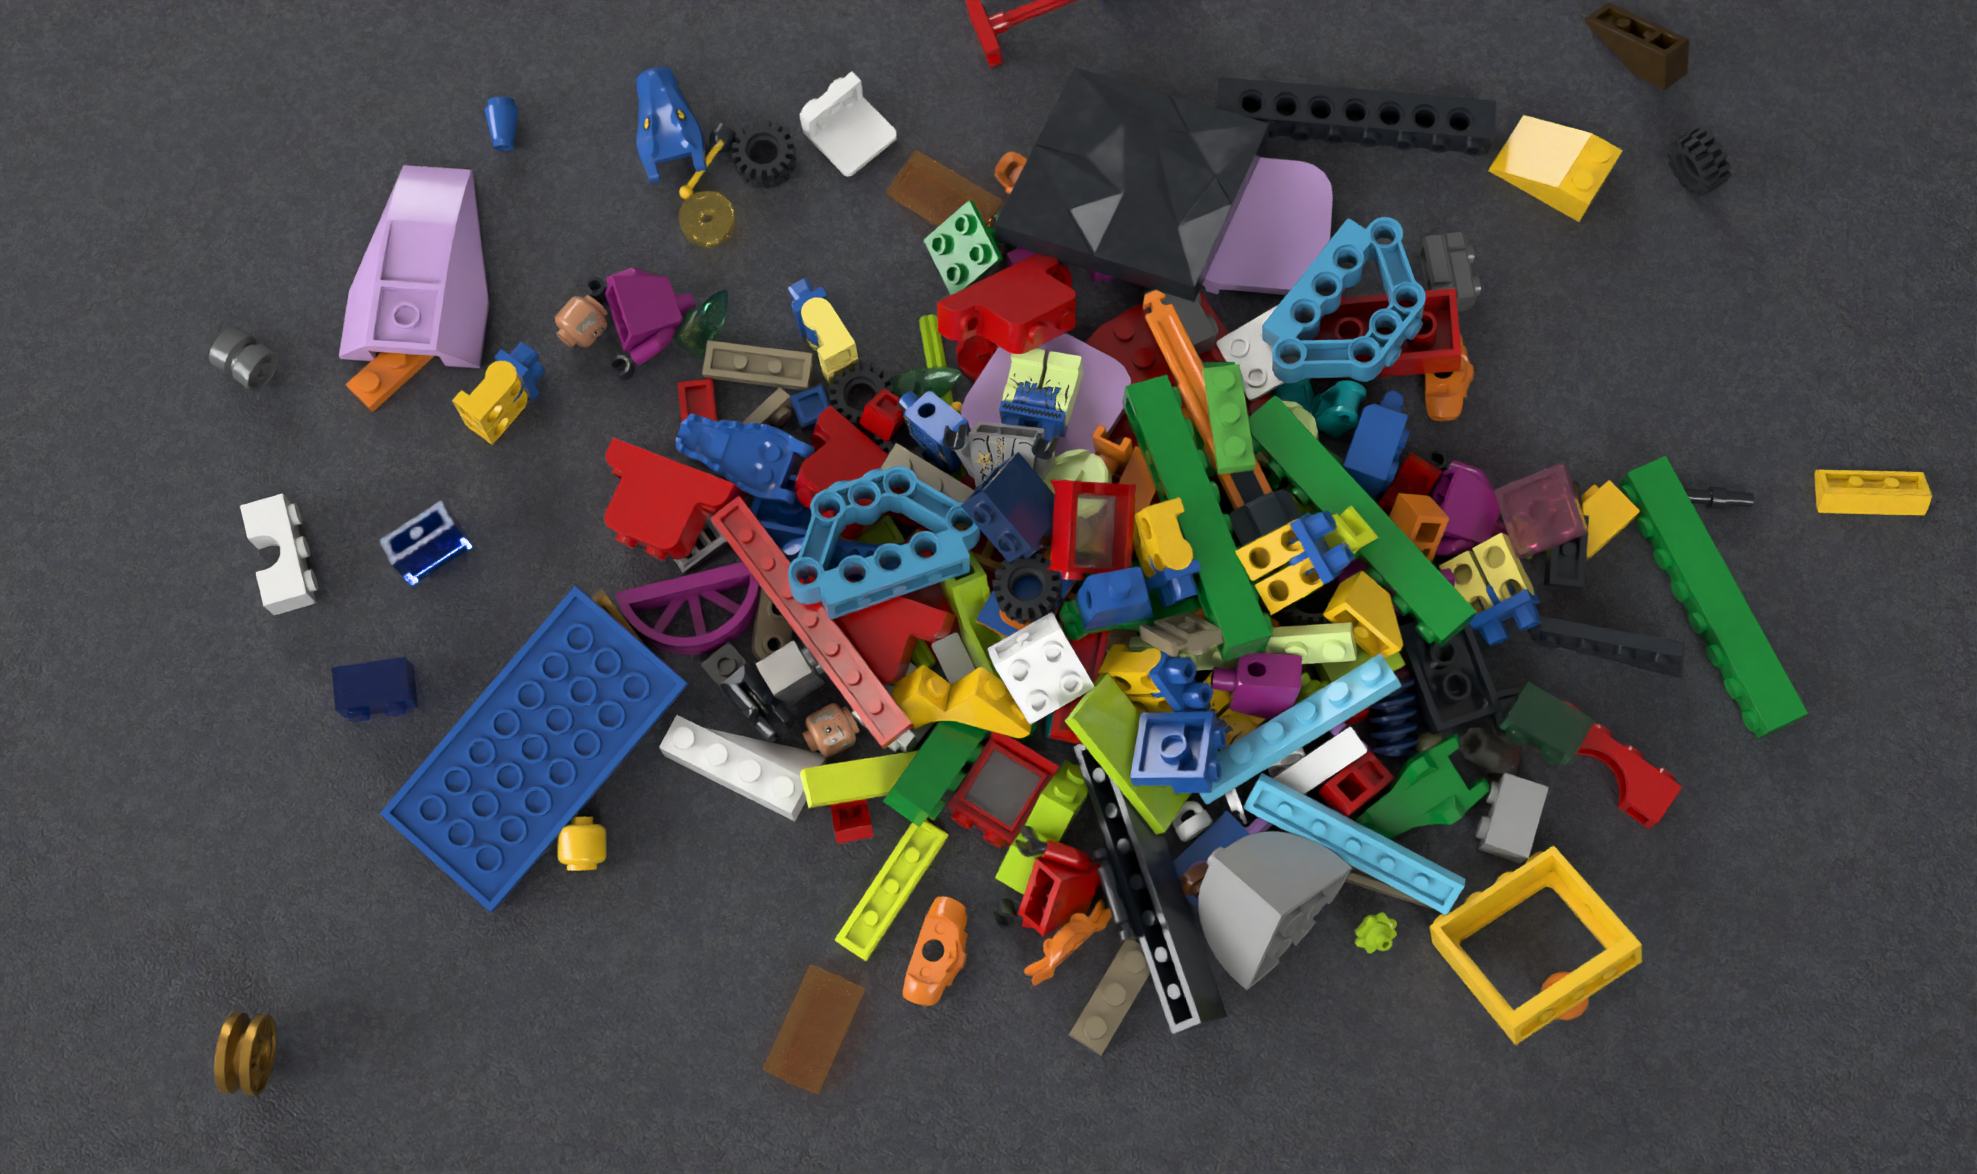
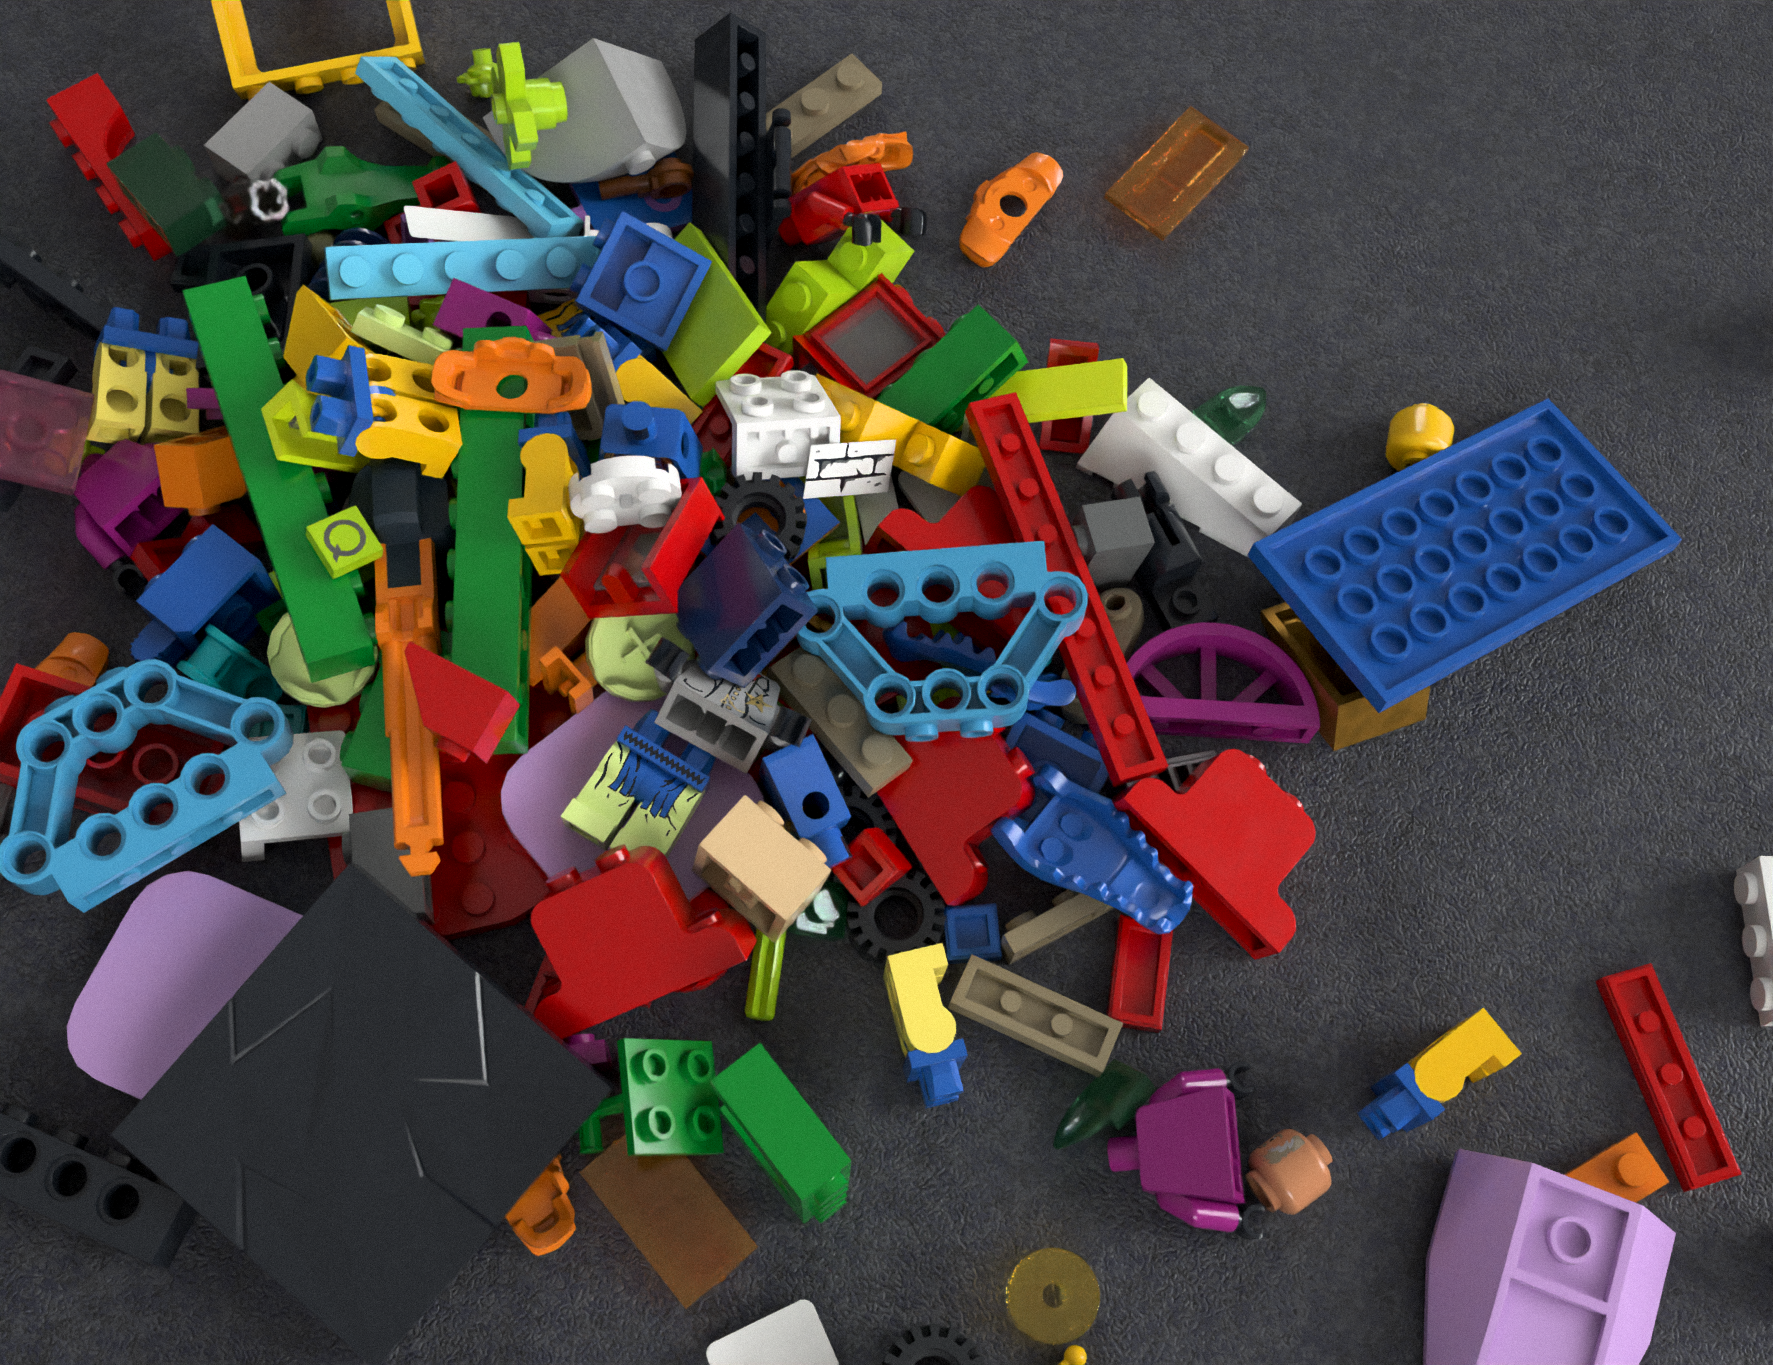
camera: 170 degrees left, 5 degrees down
(352, 452) = (1668, 1078): none -> red tile
(374, 689) = (1669, 712): clear blue brick -> none
(426, 543) = (1577, 882): clear blue brick -> none
(726, 822) = (1233, 412): none -> clear green plate
(830, 730) = (1075, 475): nougat head -> none
(882, 221) = (784, 1135): none -> green arch
(891, 889) = (1056, 282): neon yellow tile -> none
(949, 367) = (761, 867): none -> tan brick
(980, 654) = (849, 468): none -> white sticker
(1112, 539) = (625, 493): none -> white plate
(1168, 387) = (458, 705): none -> red slope
(1228, 419) = (392, 618): bright green plate -> none
(1246, 594) = (472, 377): none -> orange piece
(1287, 476) = (344, 542): none -> lime tile
(1312, 850) = (523, 105): none -> lime plant

